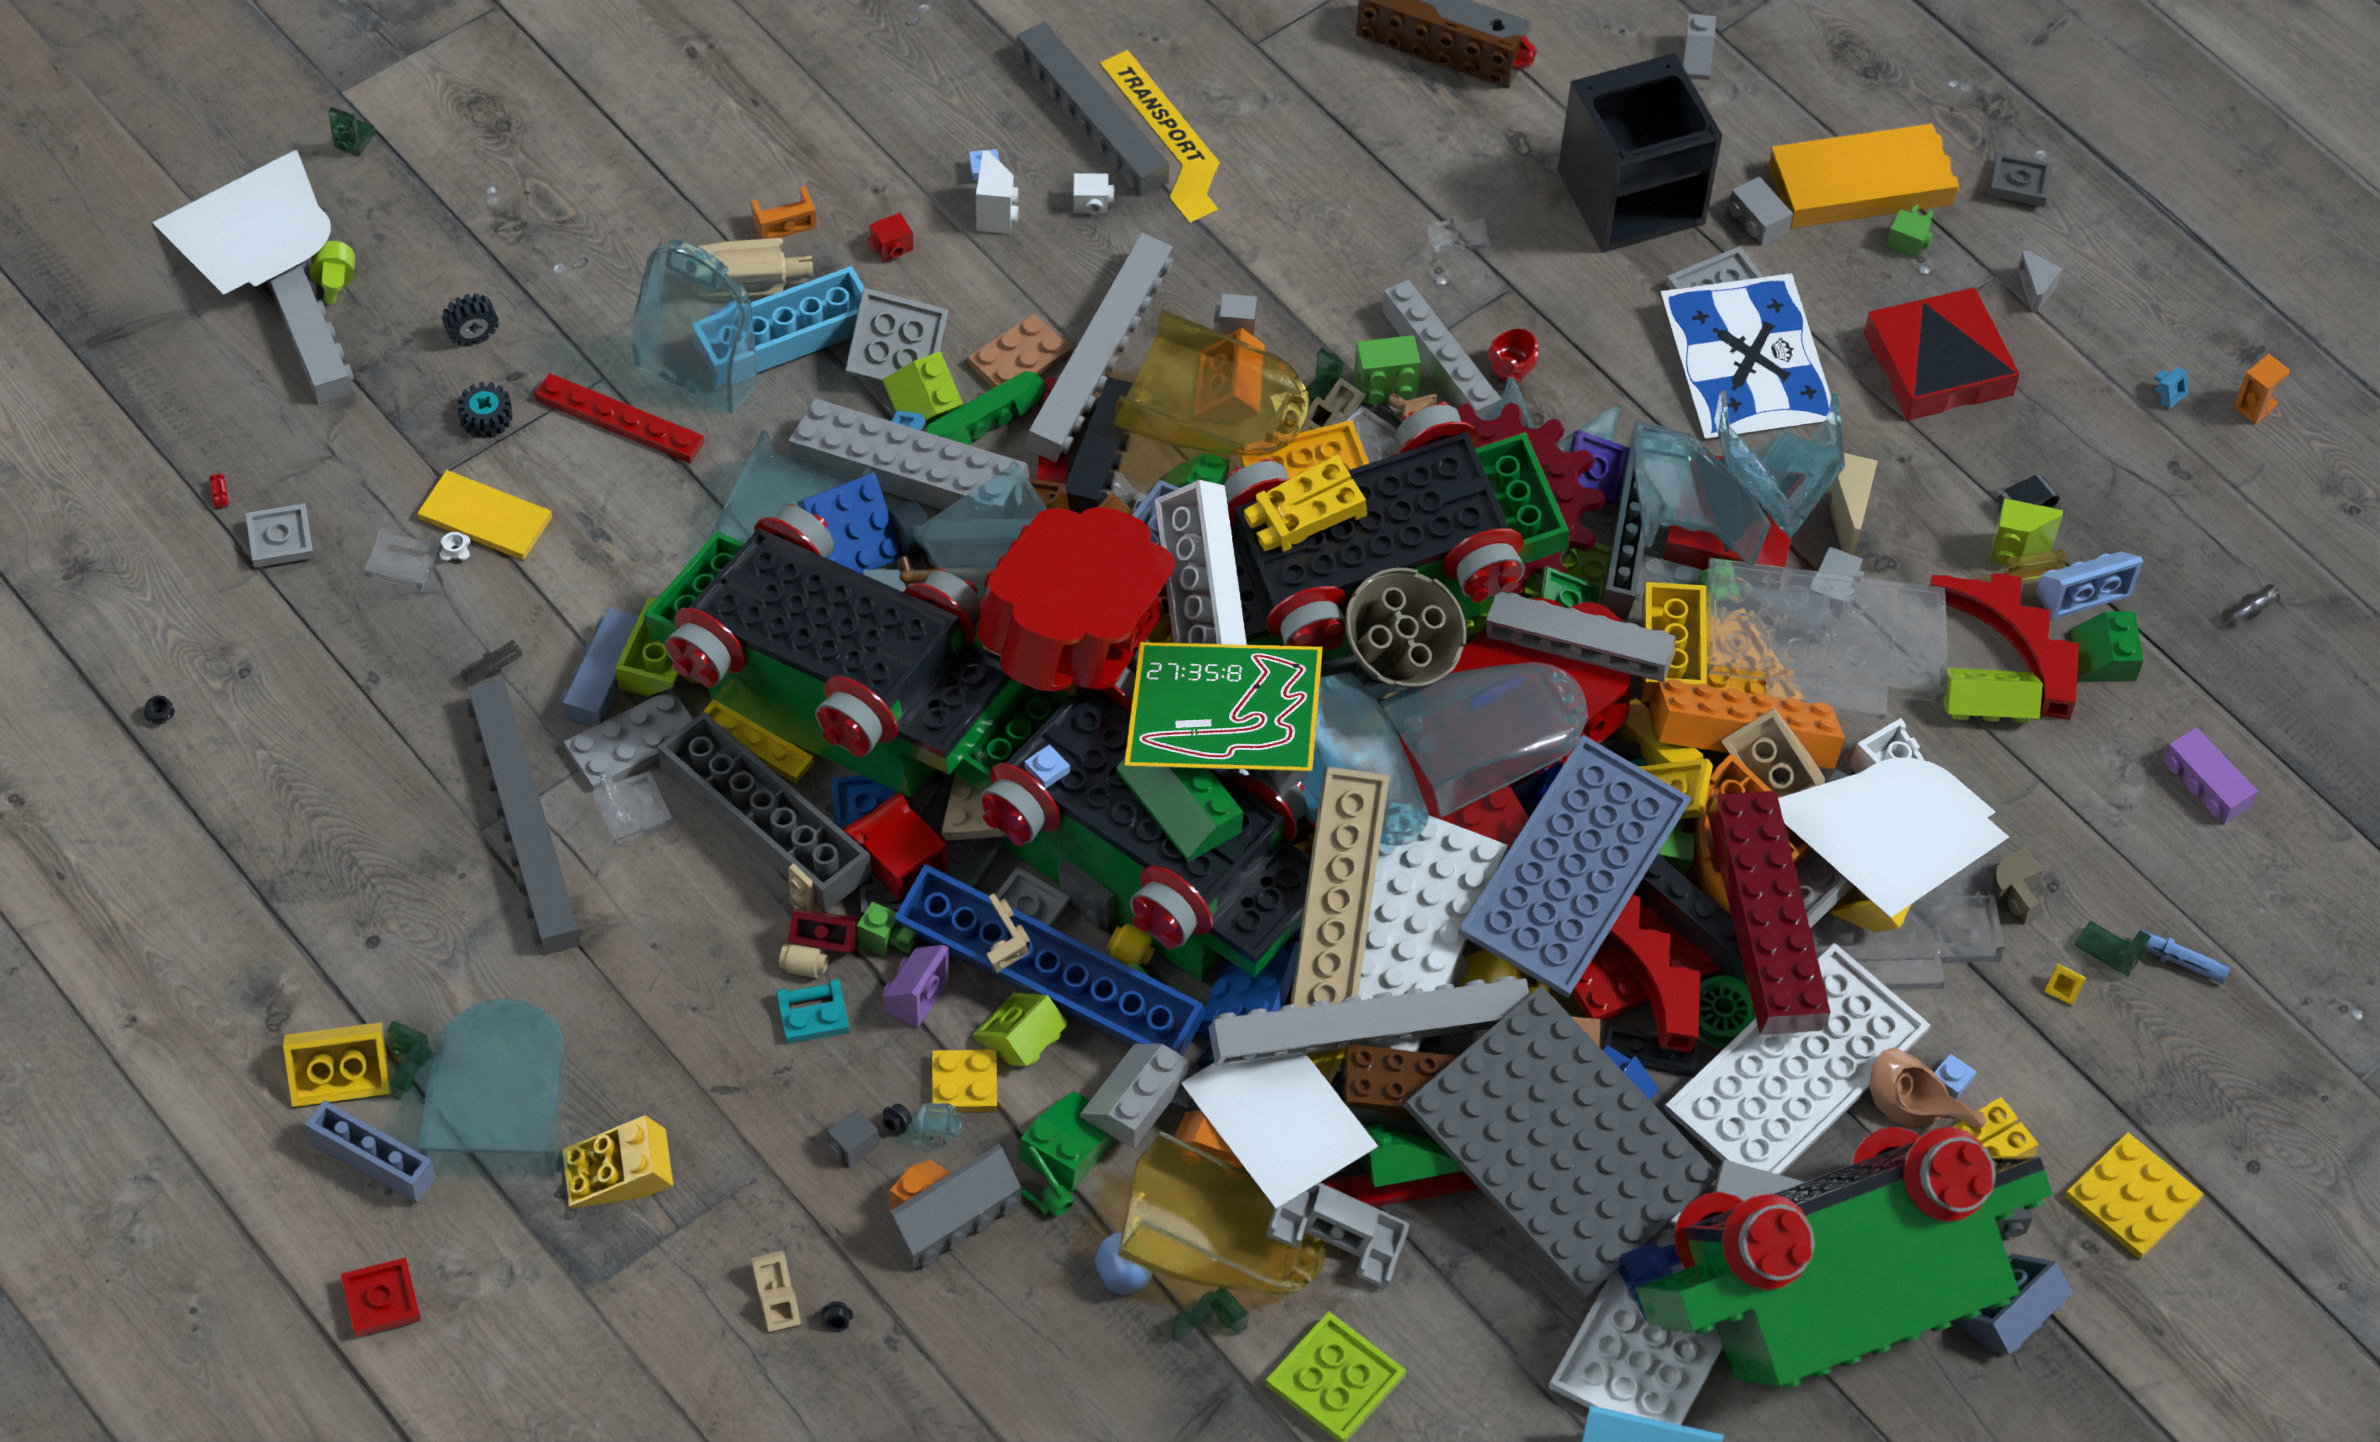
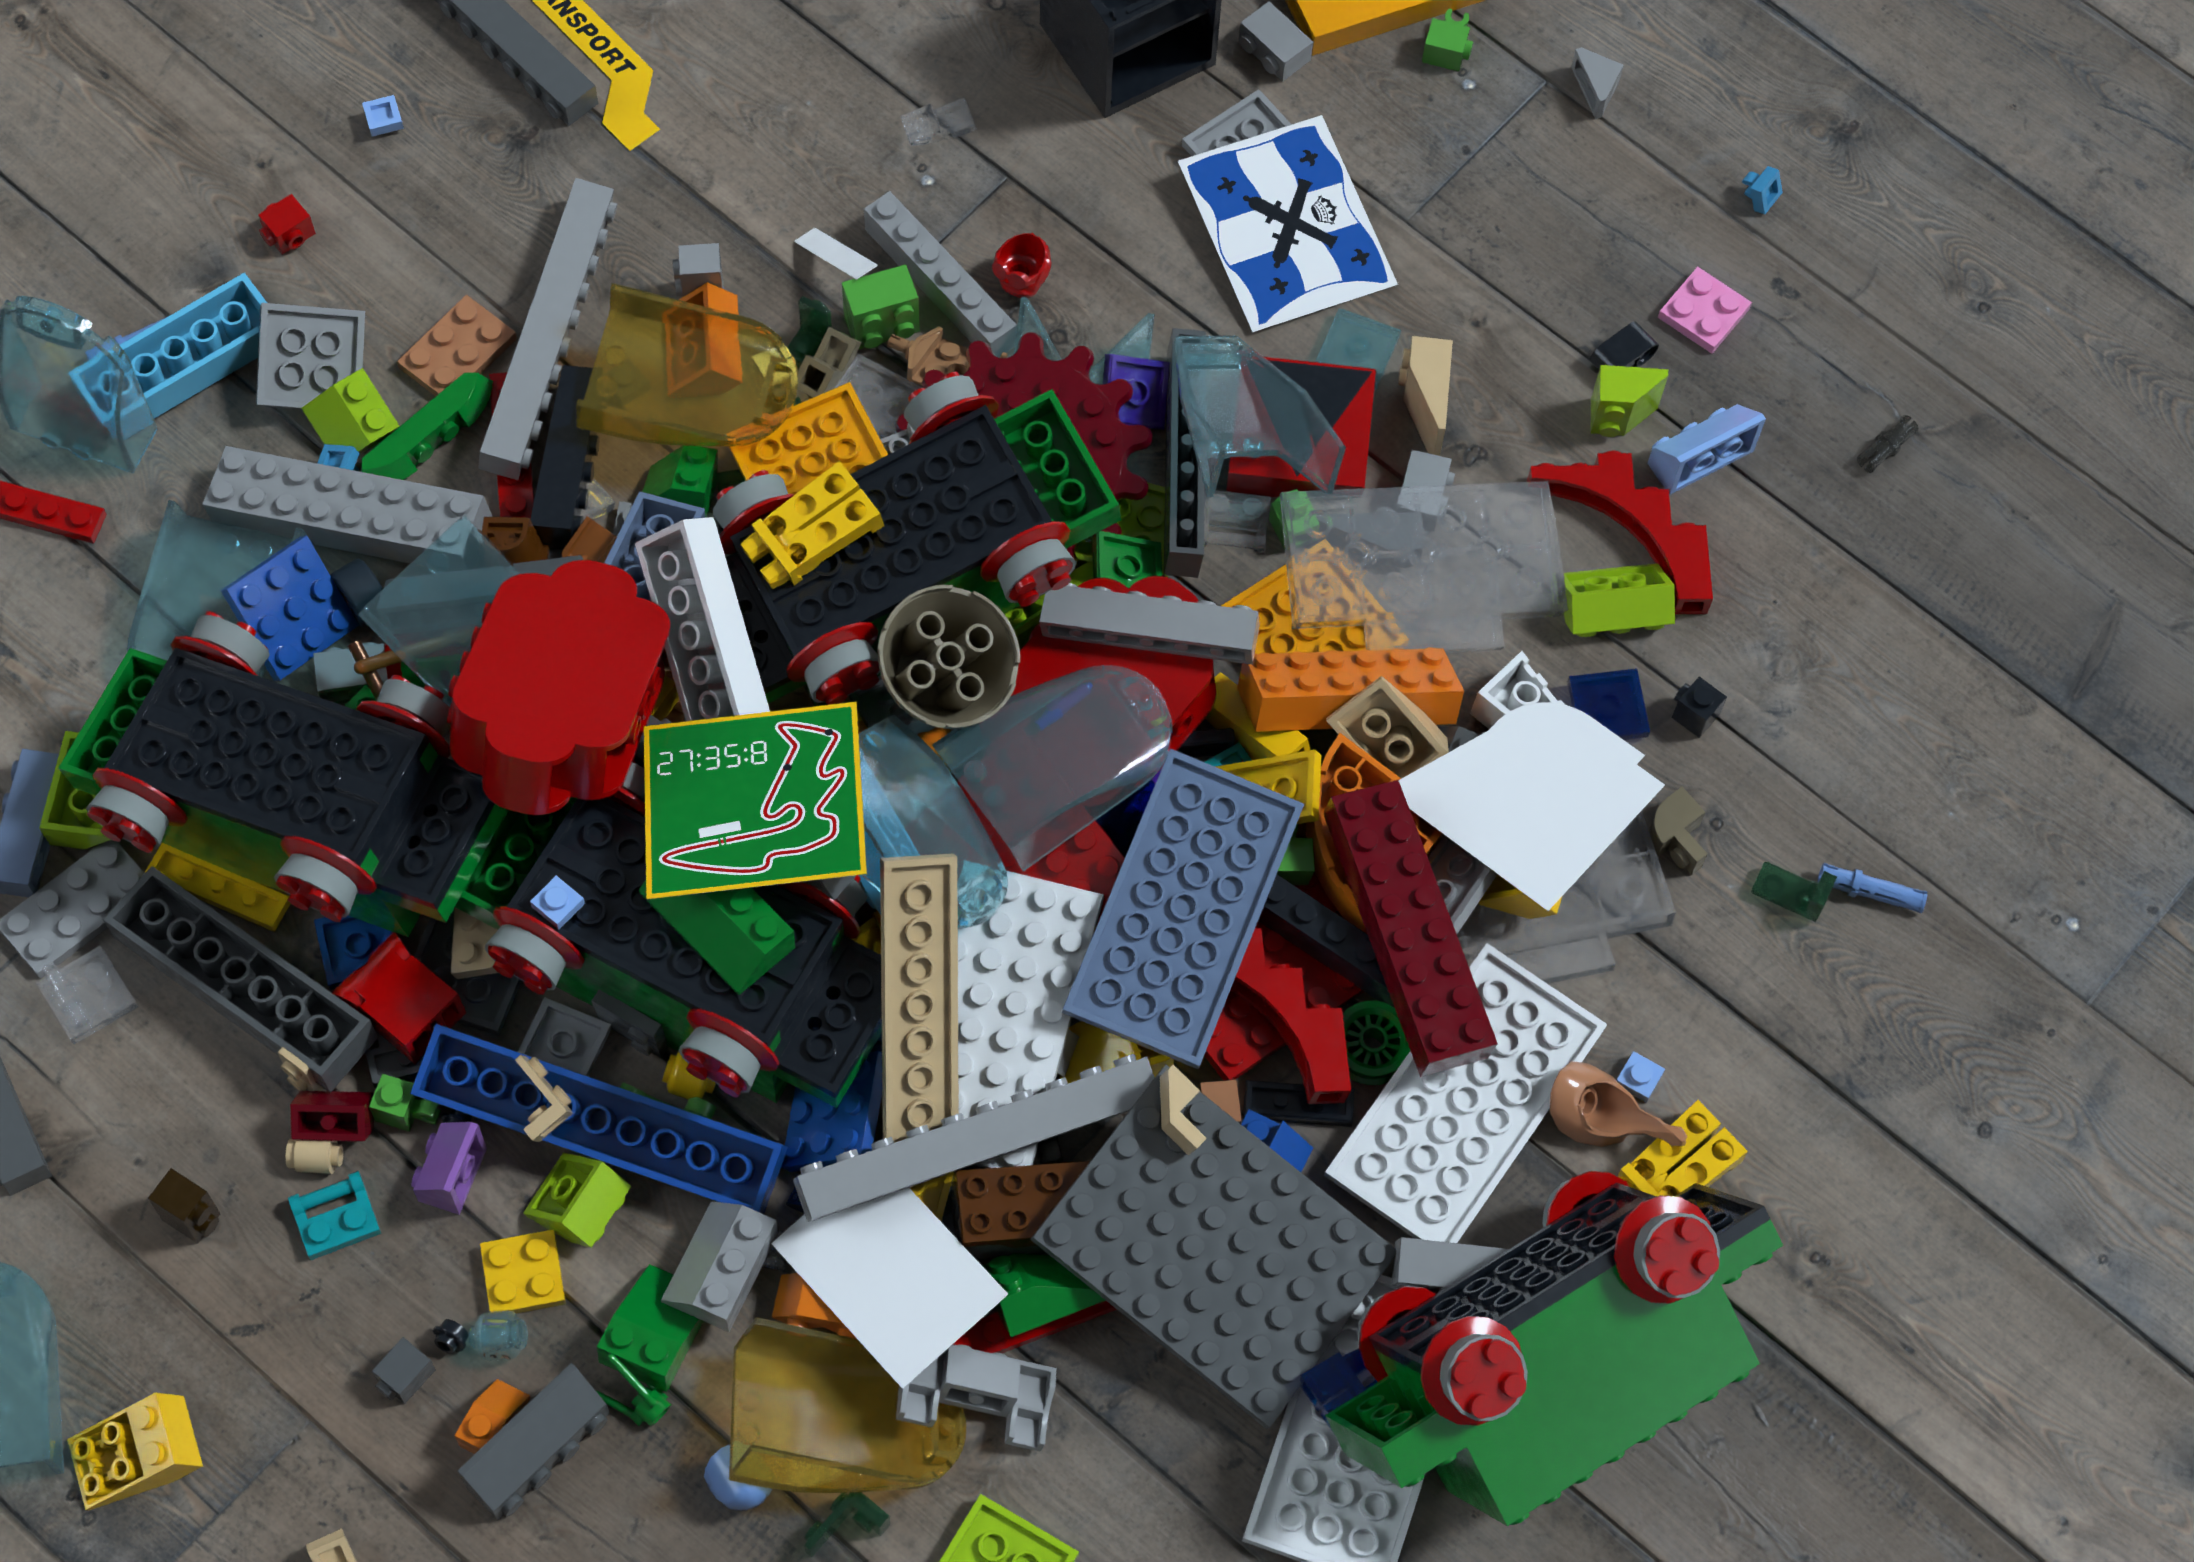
camera: 10 degrees left, 10 degrees up
(690, 979) = (185, 1206): none -> dark brown brick
(760, 265) = (125, 291): tan piece -> none
(785, 219) = (159, 218): orange panel -> none
(995, 197) = (399, 157): white slope -> none
(1092, 193) = (511, 134): white brick -> none
(1354, 322) = (835, 253): none -> white sticker
(1547, 1006) = (1175, 1094): none -> tan slope
(1681, 613) = (1254, 573): yellow brick -> none
(1790, 493) = (1356, 394): clear light blue windscreen -> none
(1941, 353) = (1502, 188): red tile -> none
(1977, 770) = (1612, 700): none -> clear blue plate
(2035, 565) = (1644, 433): clear yellow tile -> none
(2041, 1293) = (1773, 1331): sand blue slope -> none
(2050, 788) = (1698, 706): none -> black brick
(2065, 984) = (1748, 944): yellow slope -> none
(2105, 476) = (1704, 310): none -> bright pink plate
(2108, 647) = (1738, 522): green slope -> none
(2134, 1195) = (1859, 1189): yellow plate -> none
(2210, 776) = (1872, 662): medium lavender brick -> none
(2257, 388) = (1861, 179): orange panel -> none

